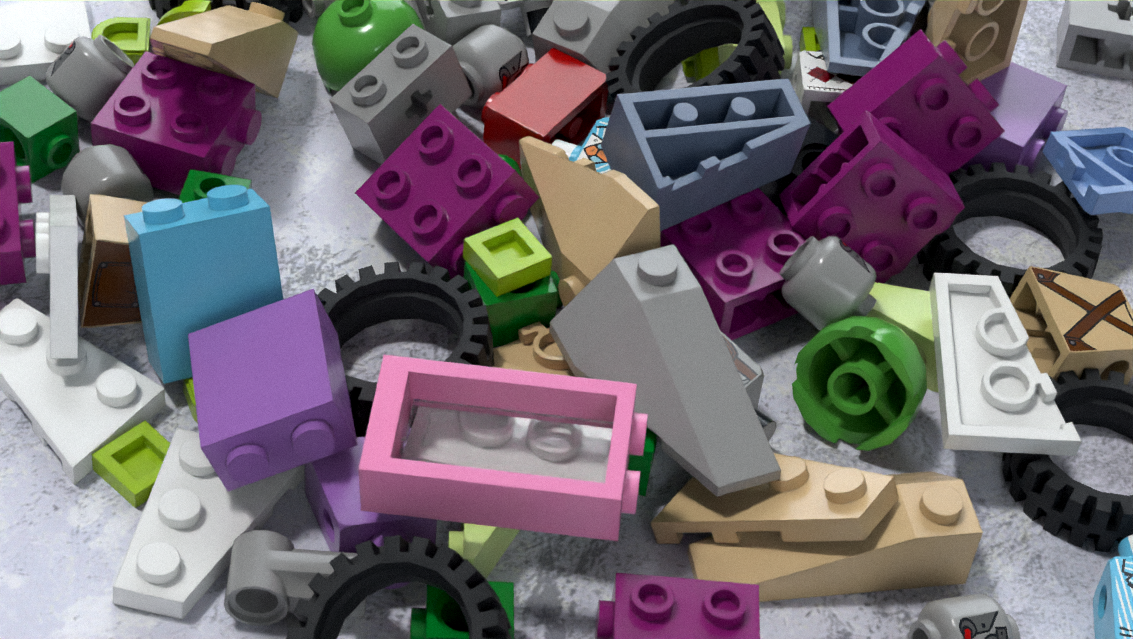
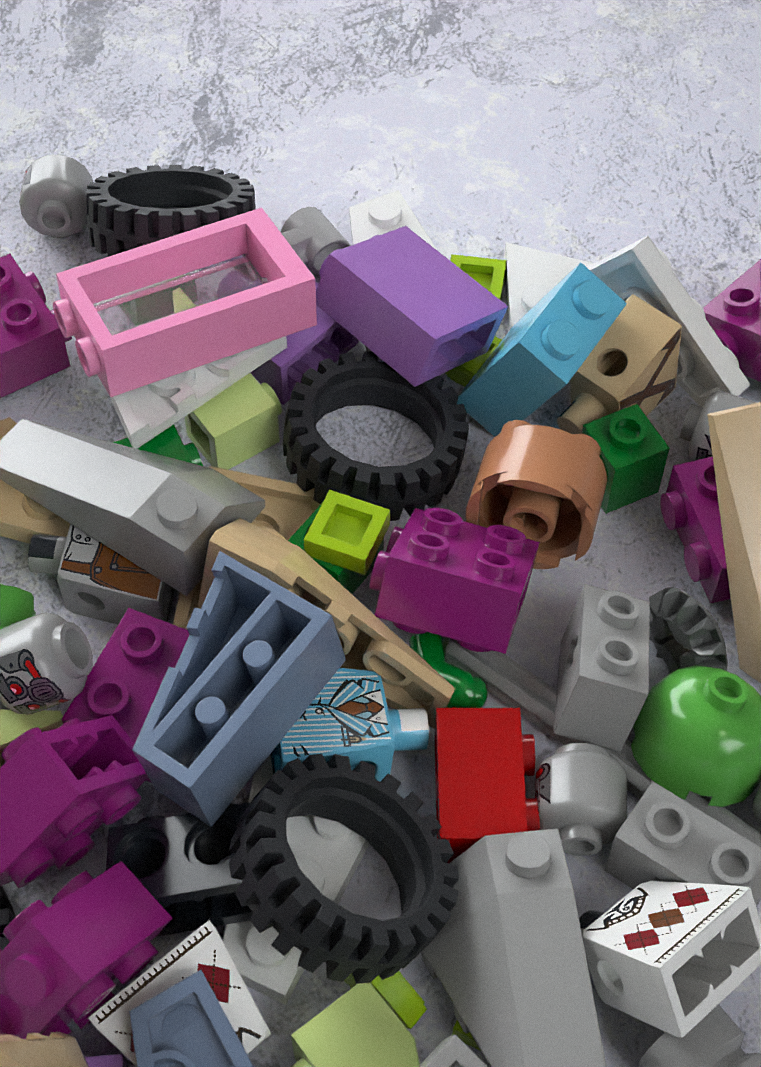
camera: 150 degrees right, 10 degrees up
(318, 87) = (685, 631): none -> dark grey gear
(325, 215) = (543, 486): none -> nougat brick

